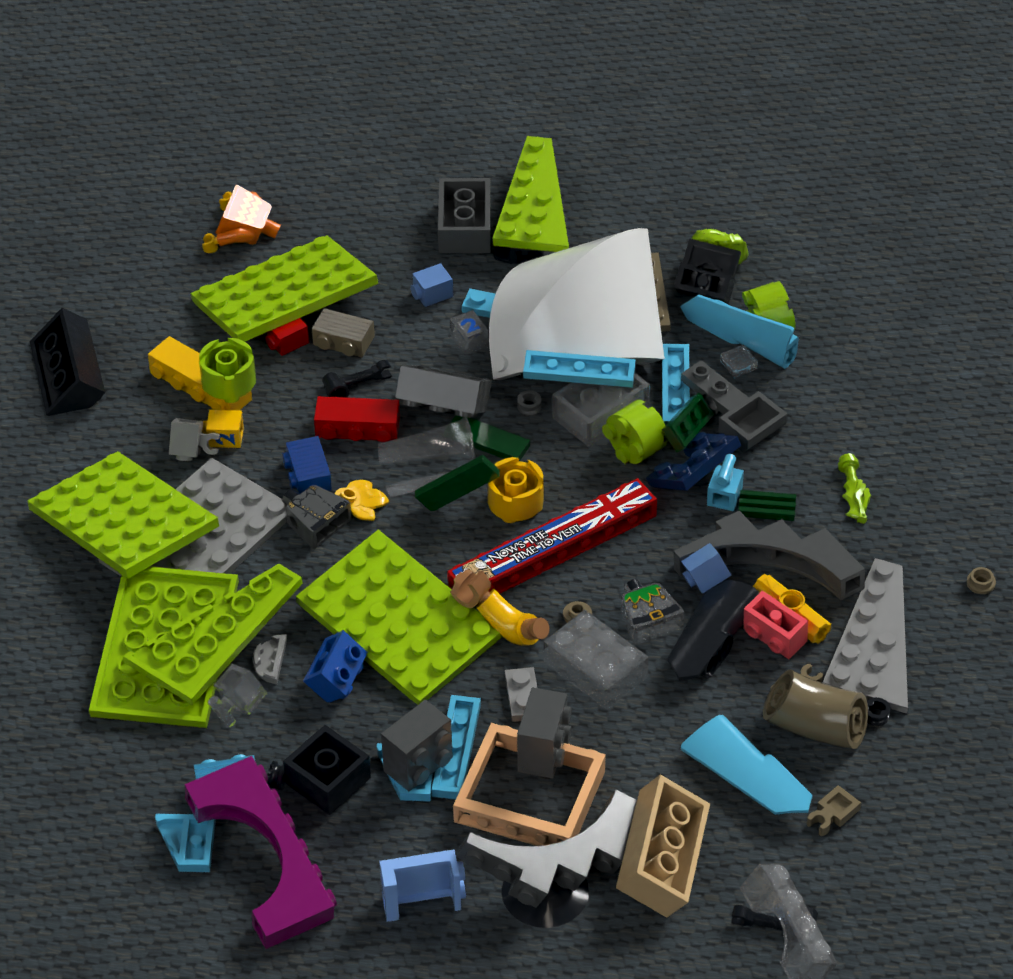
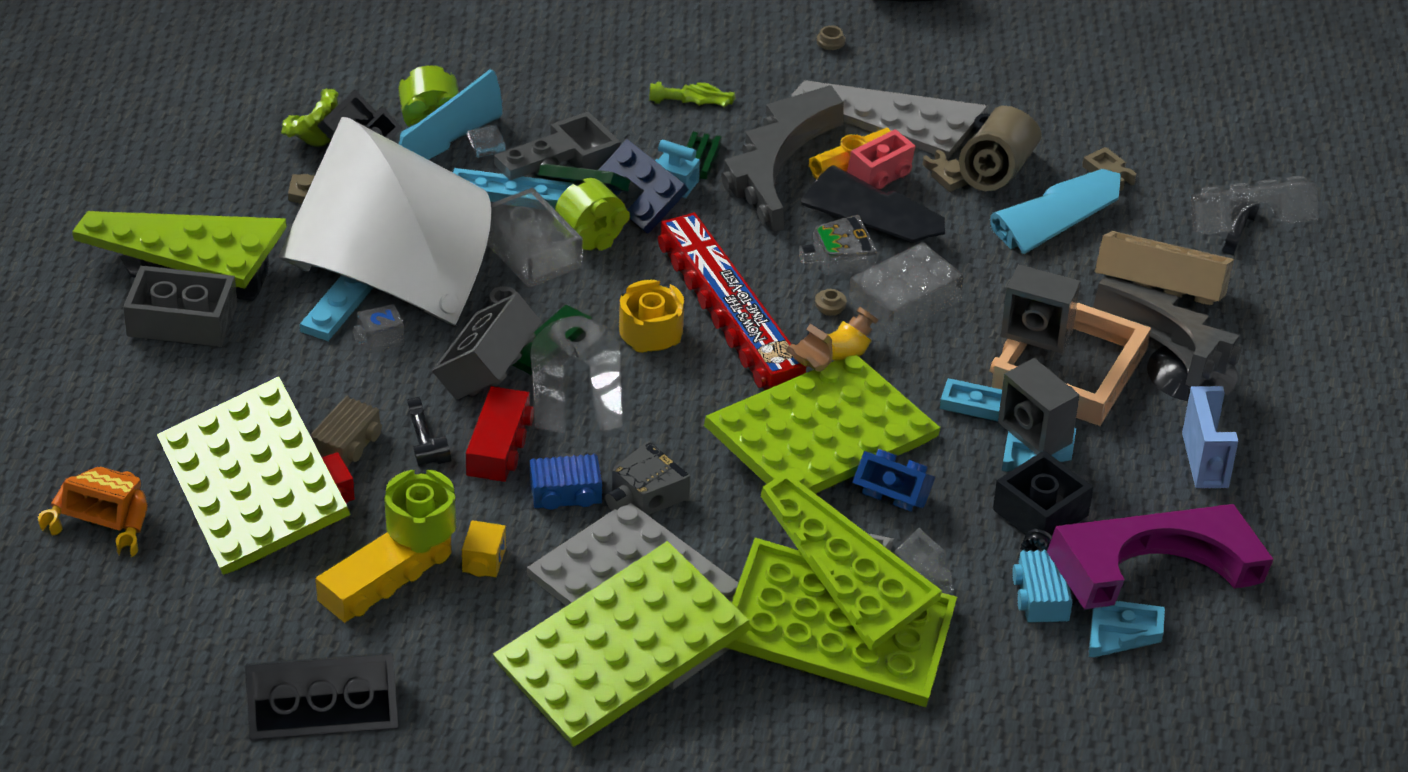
camera: 85 degrees left, 5 degrees down
(187, 439) = (500, 577): light grey brick -> none
(363, 499) = (619, 446): yellow plate -> none
(432, 285) = (287, 350): medium blue brick -> none
(457, 483) = (646, 347): dark green tile -> none
(518, 688) = (935, 354): light grey plate -> none
(579, 368) = (506, 226): medium azure plate -> none
(705, 568) = (796, 195): medium blue brick -> none

